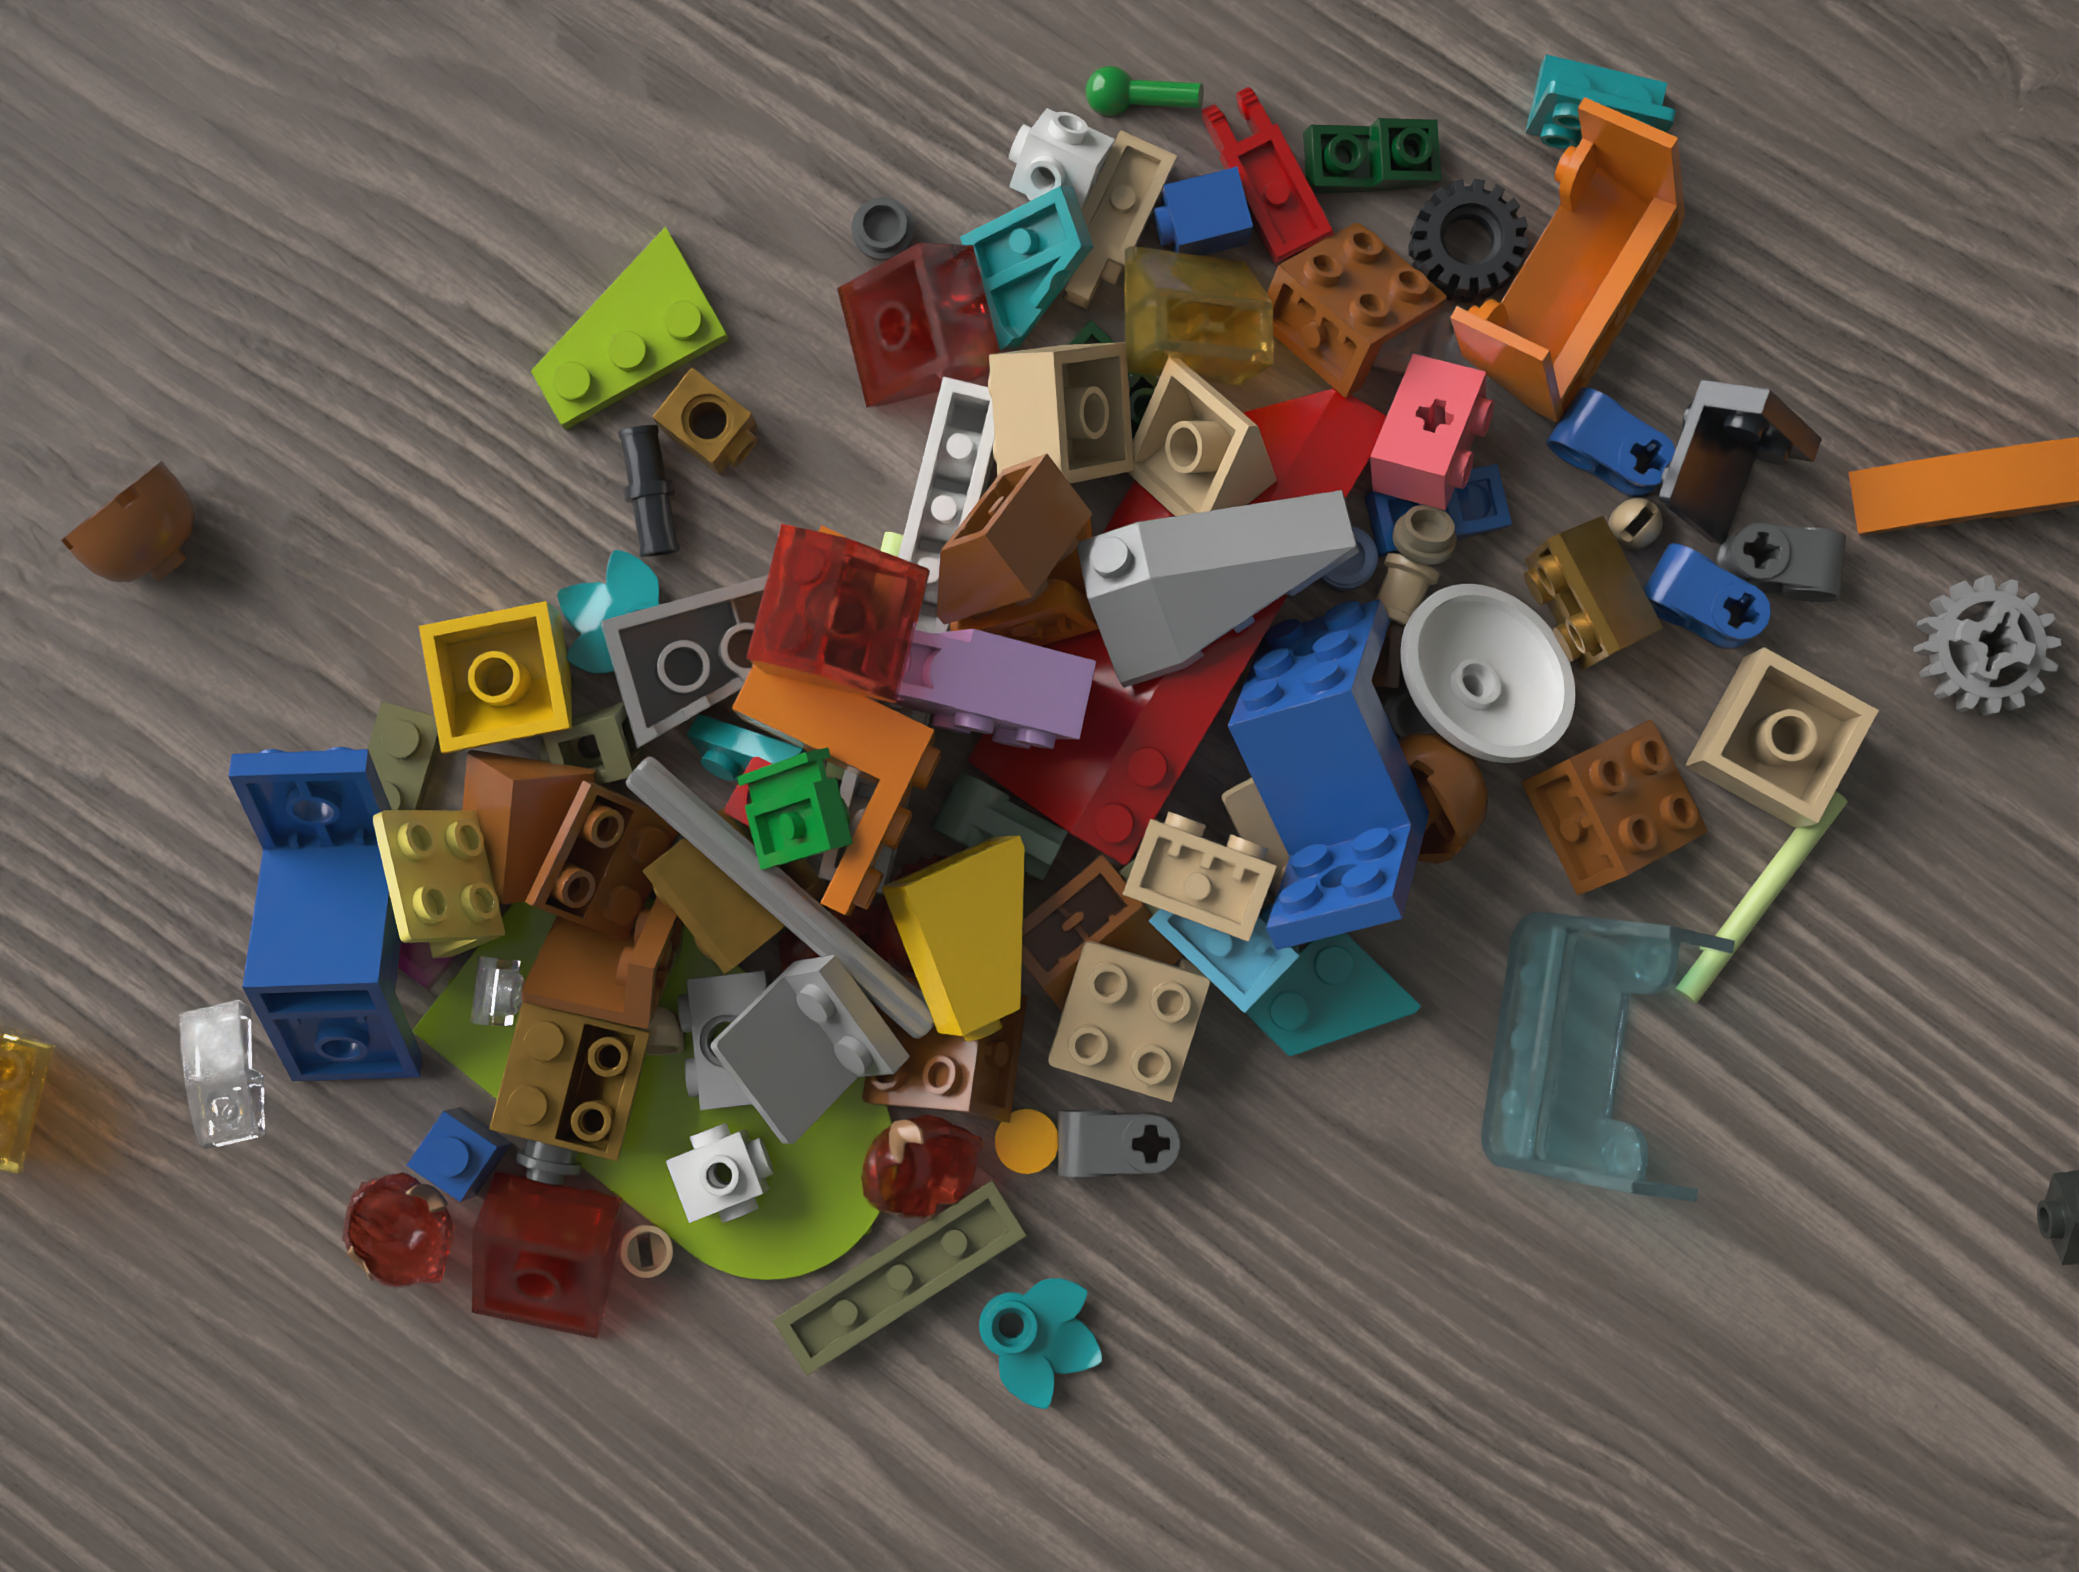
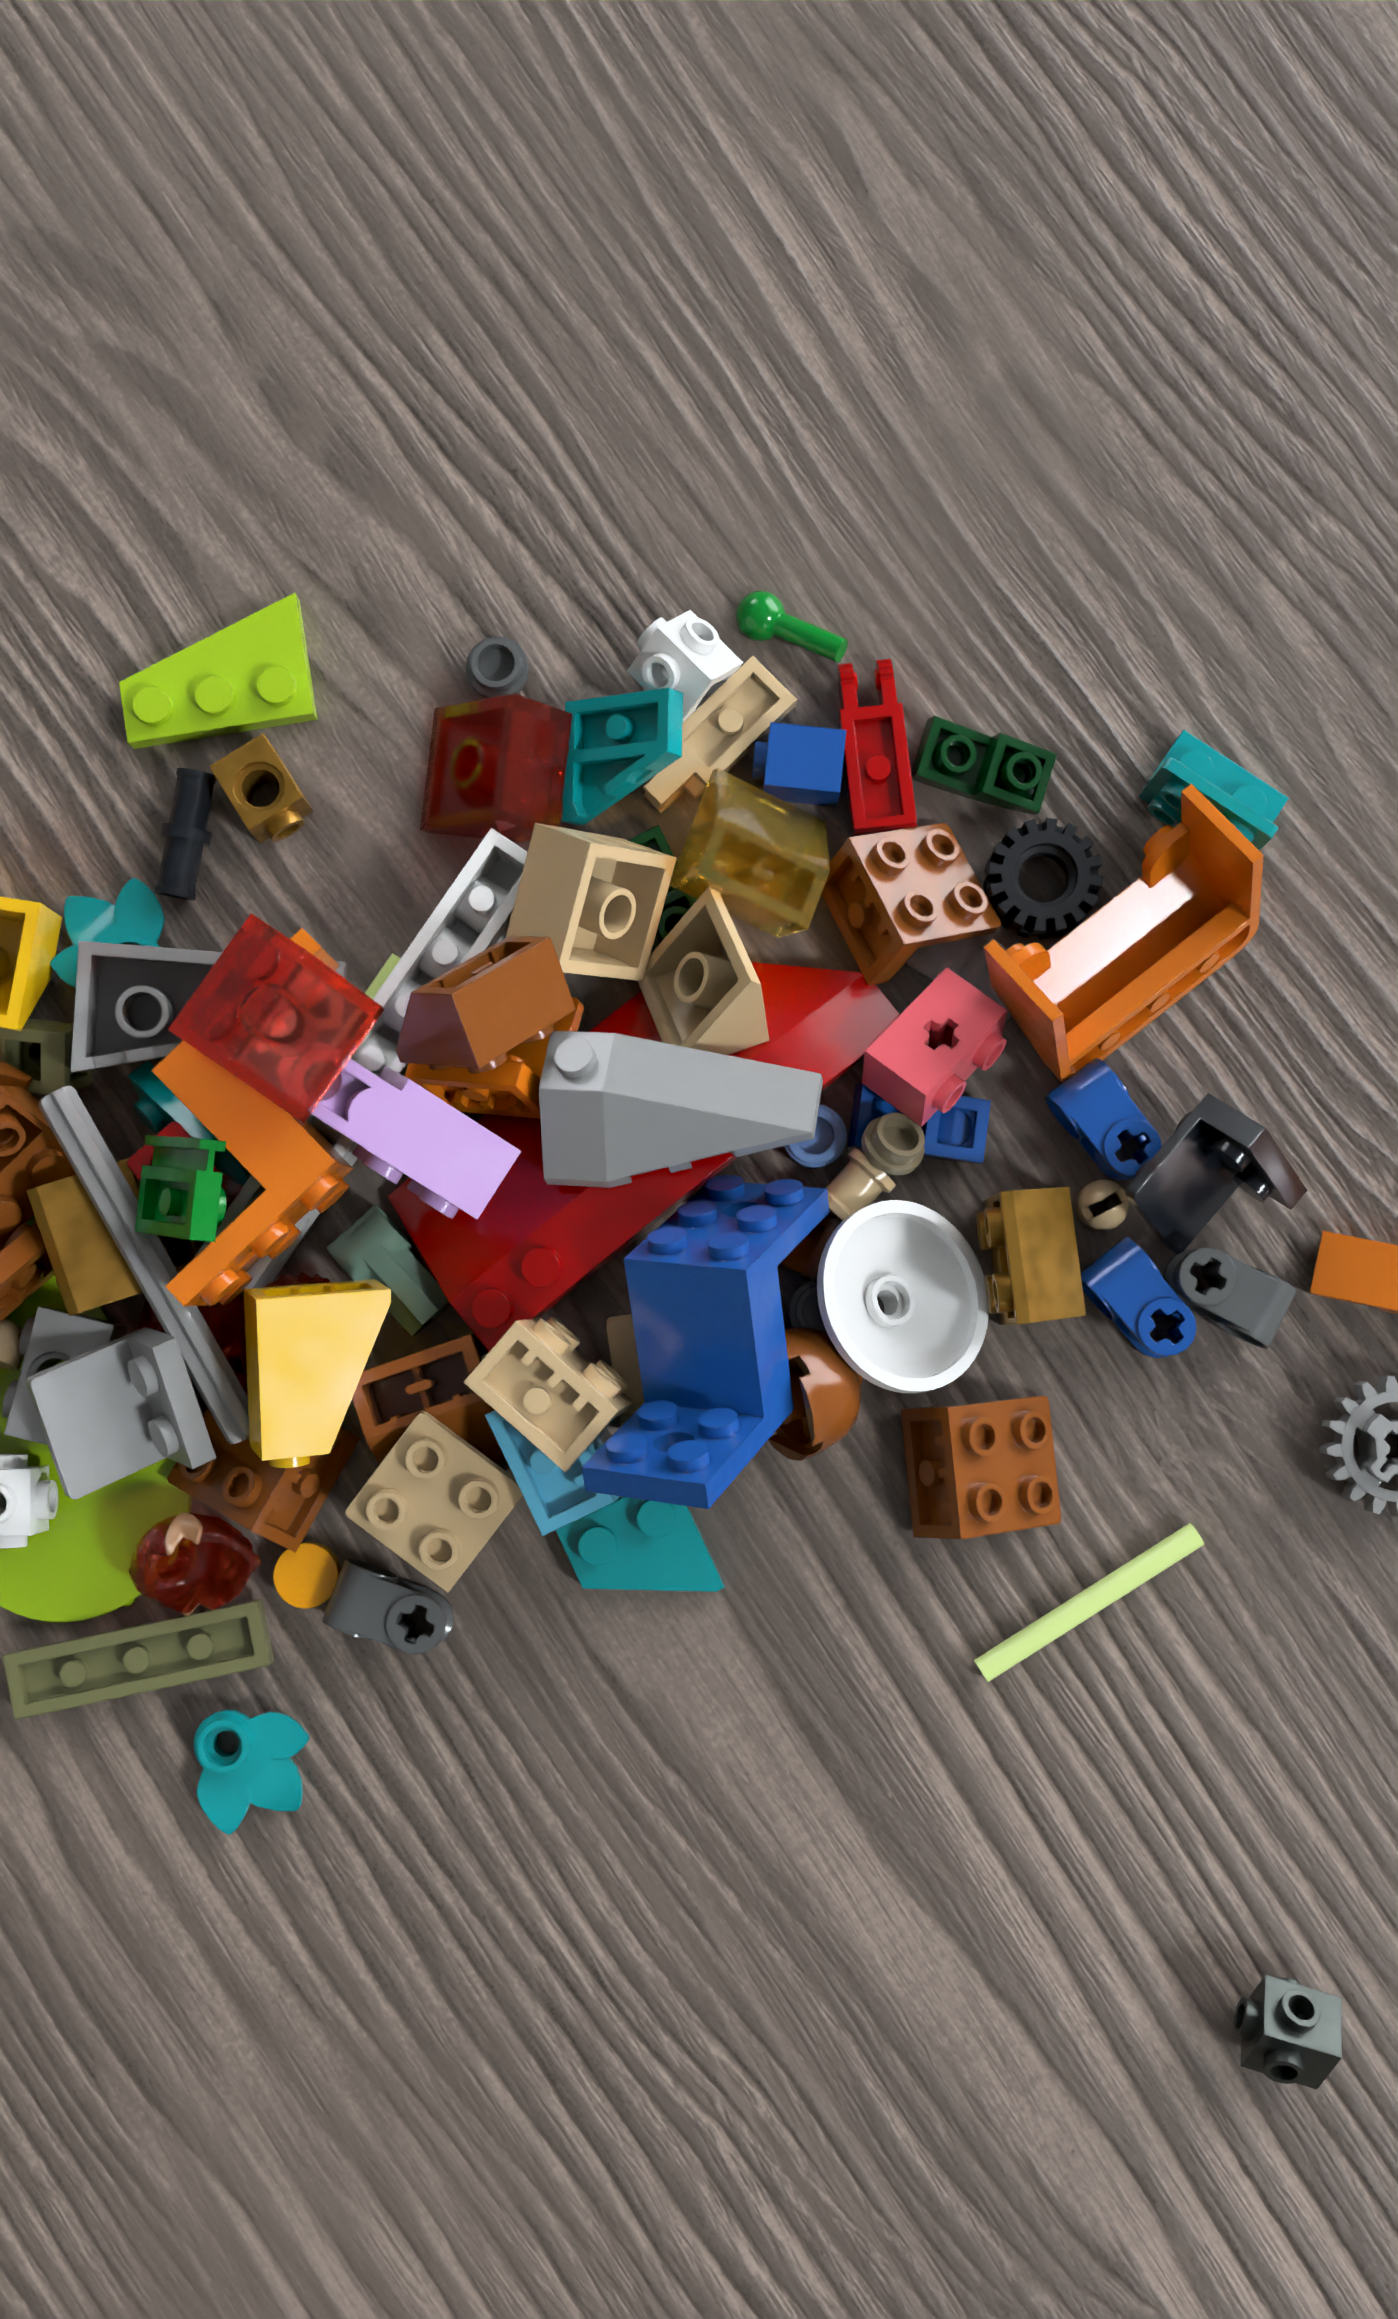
camera: 25 degrees right, 0 degrees up
(1564, 1047) = (841, 1685): clear light blue windscreen -> none
(1781, 738) = (1160, 1462): tan brick -> none

